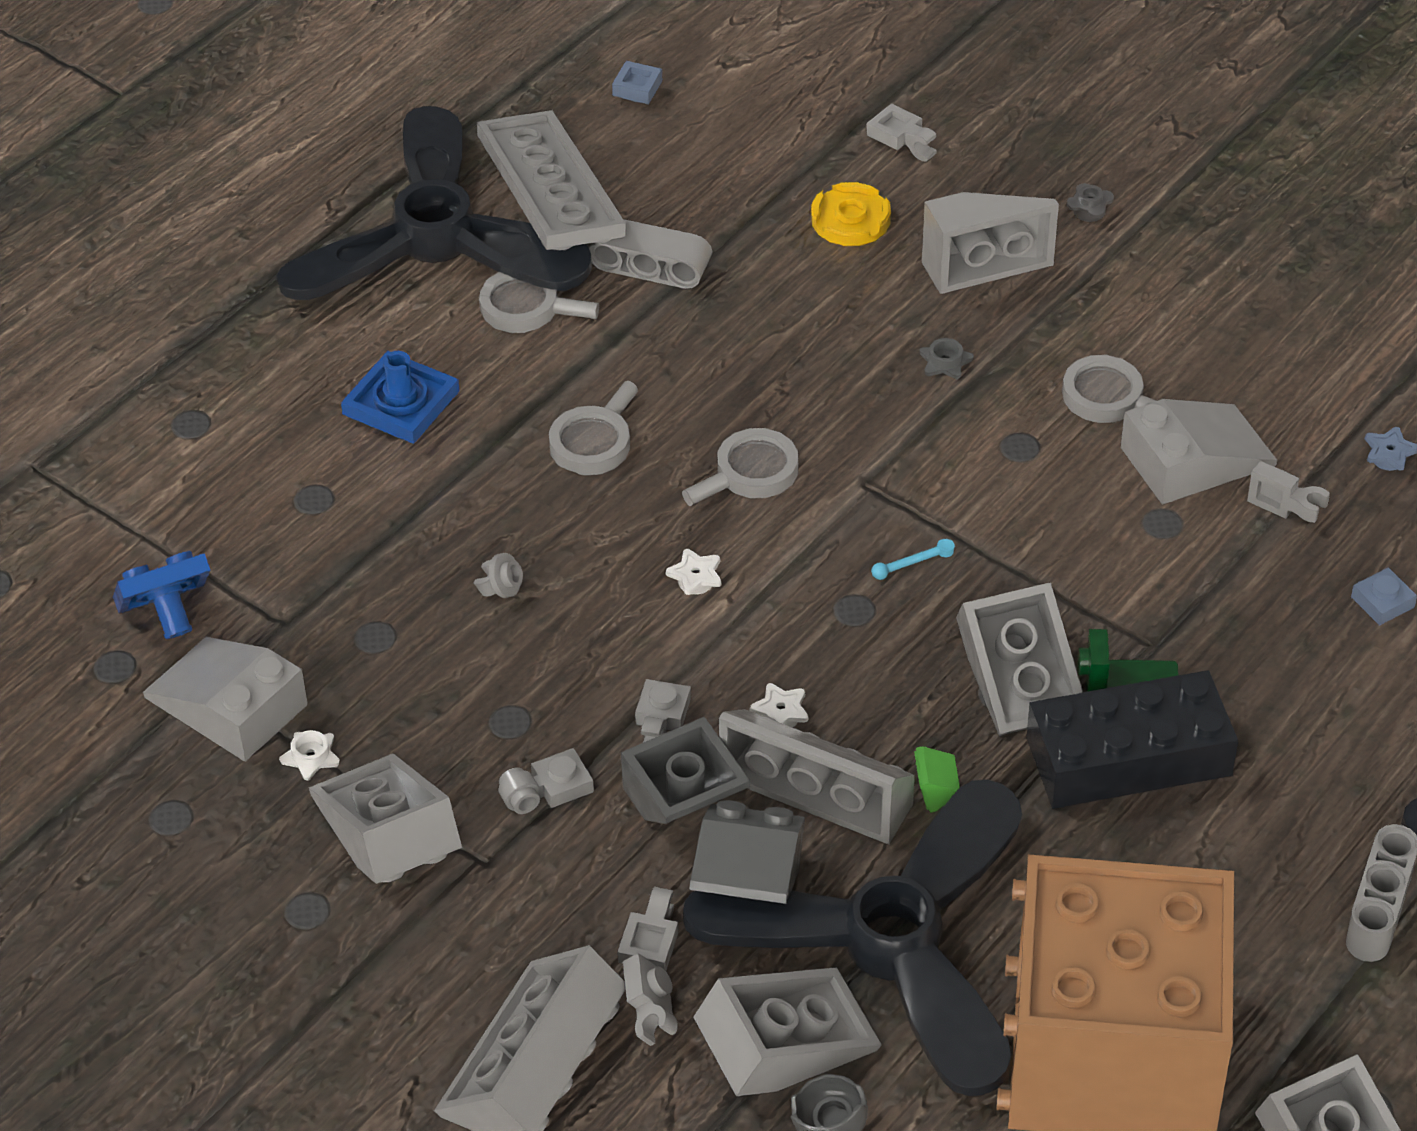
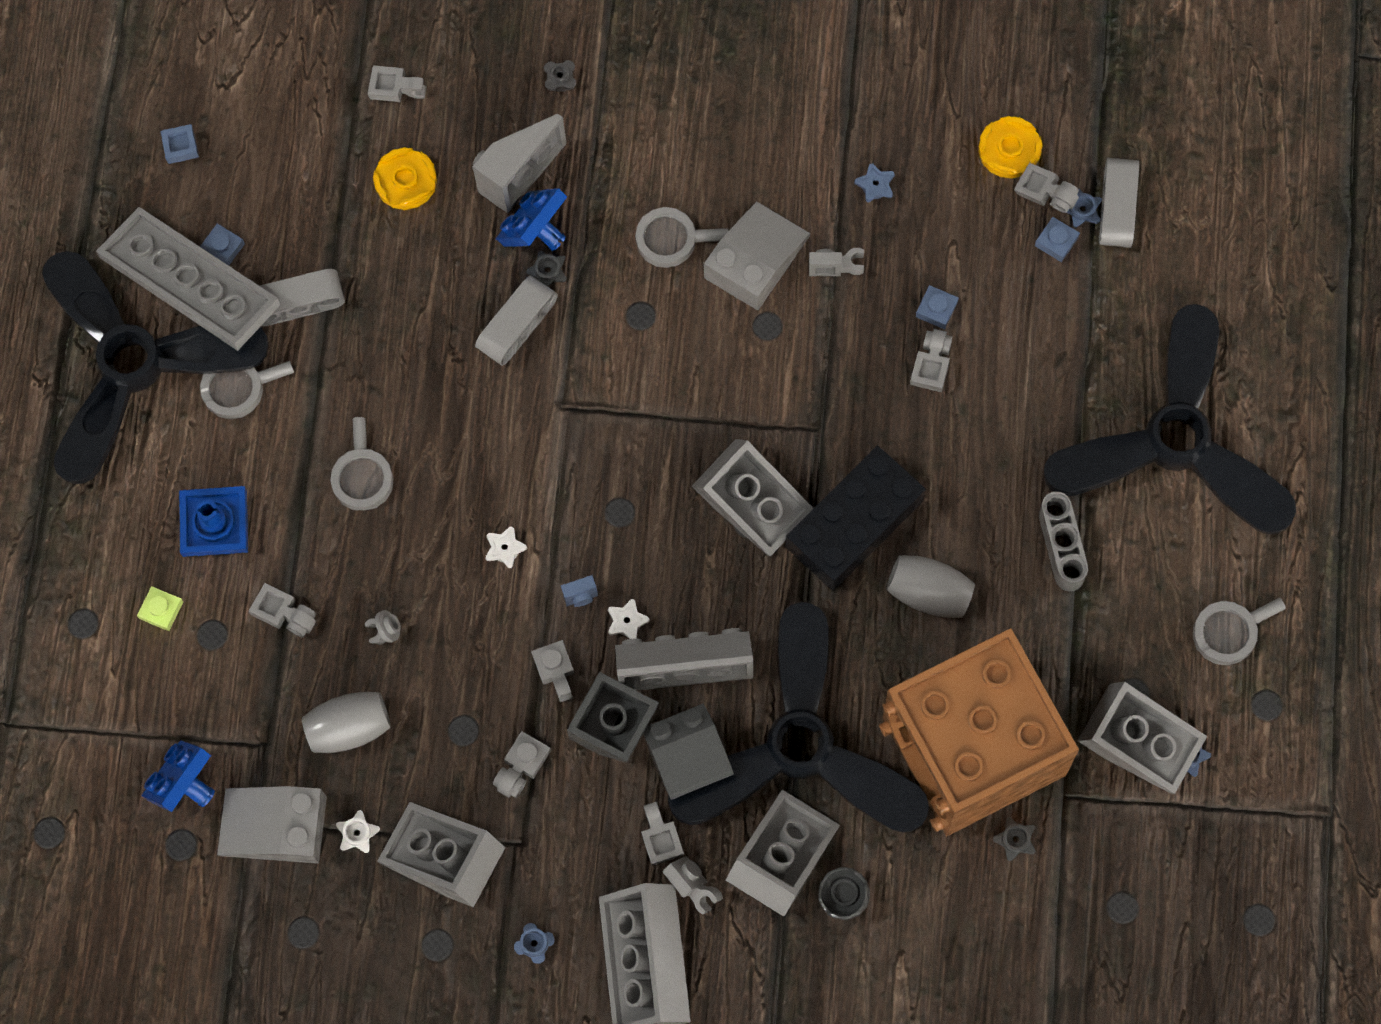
camera: 30 degrees left, 25 degrees up
(279, 446) = (160, 608): none -> yellowish green plate
(384, 634) = (346, 722): none -> light grey piece
(403, 502) = (275, 606): none -> light grey plate
(414, 952) = (532, 933): none -> sand blue plate
(615, 180) = (223, 244): none -> sand blue plate
(747, 648) = (579, 592): none -> sand blue plate
(750, 465) = (482, 436): light grey piece -> none
(873, 378) = (516, 320): none -> light grey beam
(936, 776) = (758, 617): bright green slope -> none
(944, 548) = (645, 430): medium azure hinge -> none
(961, 295) = (533, 220): none -> blue plate
(1107, 673) = (822, 468): dark green bracket -> none
(1169, 834) = (930, 586): none -> light grey piece
(1337, 644) = (931, 367): none -> light grey plate

